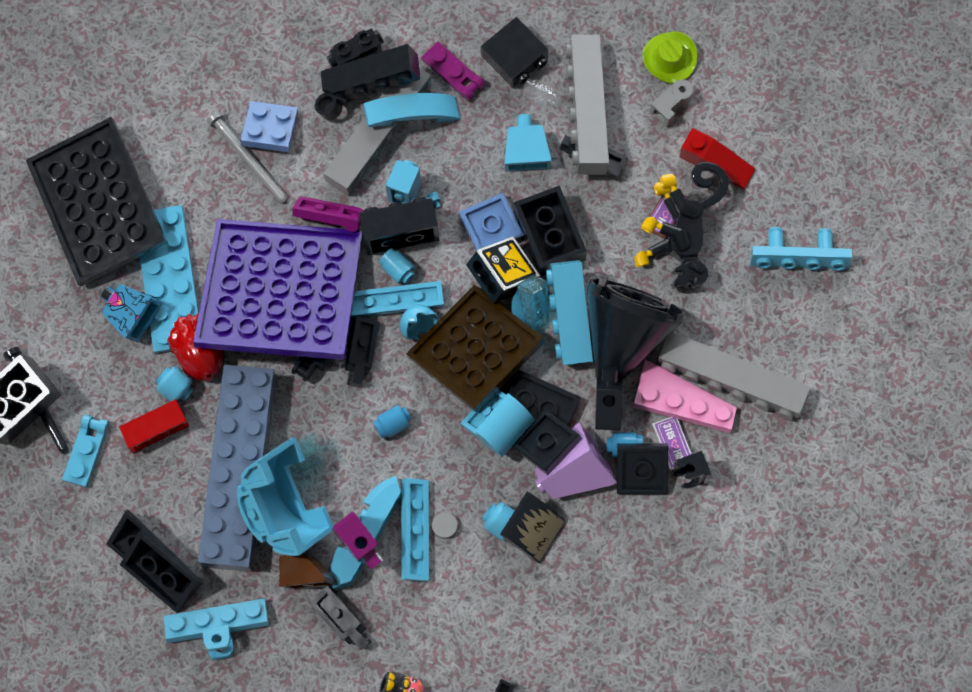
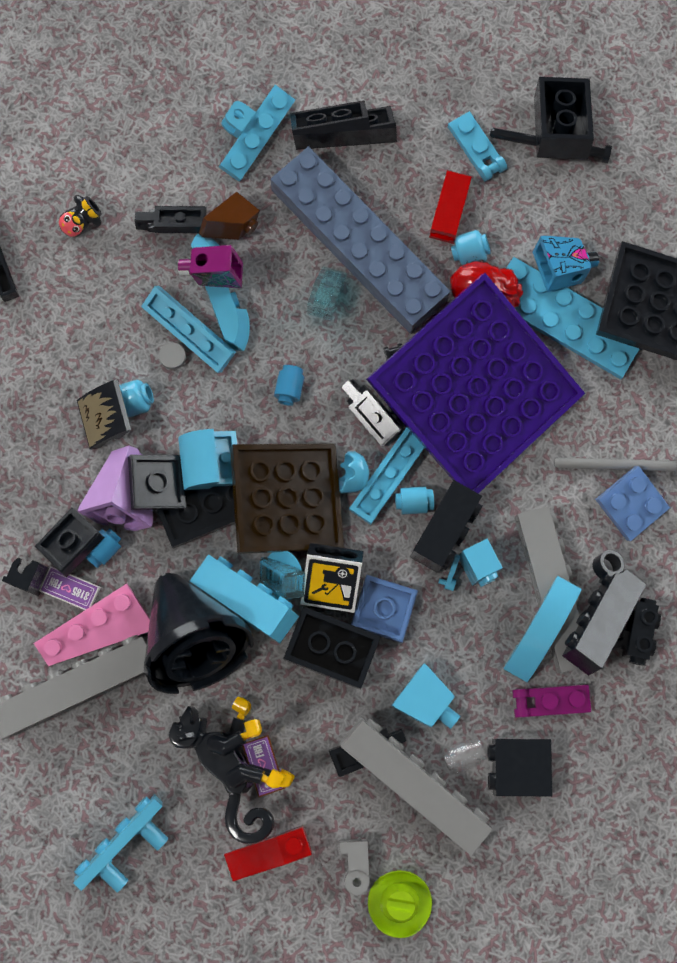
camera: 125 degrees right, 5 degrees up
(273, 504) = (291, 233): medium azure cylinder -> none
(327, 212) = (512, 485): magenta plate -> none
(608, 400) = (148, 566): black torso -> none

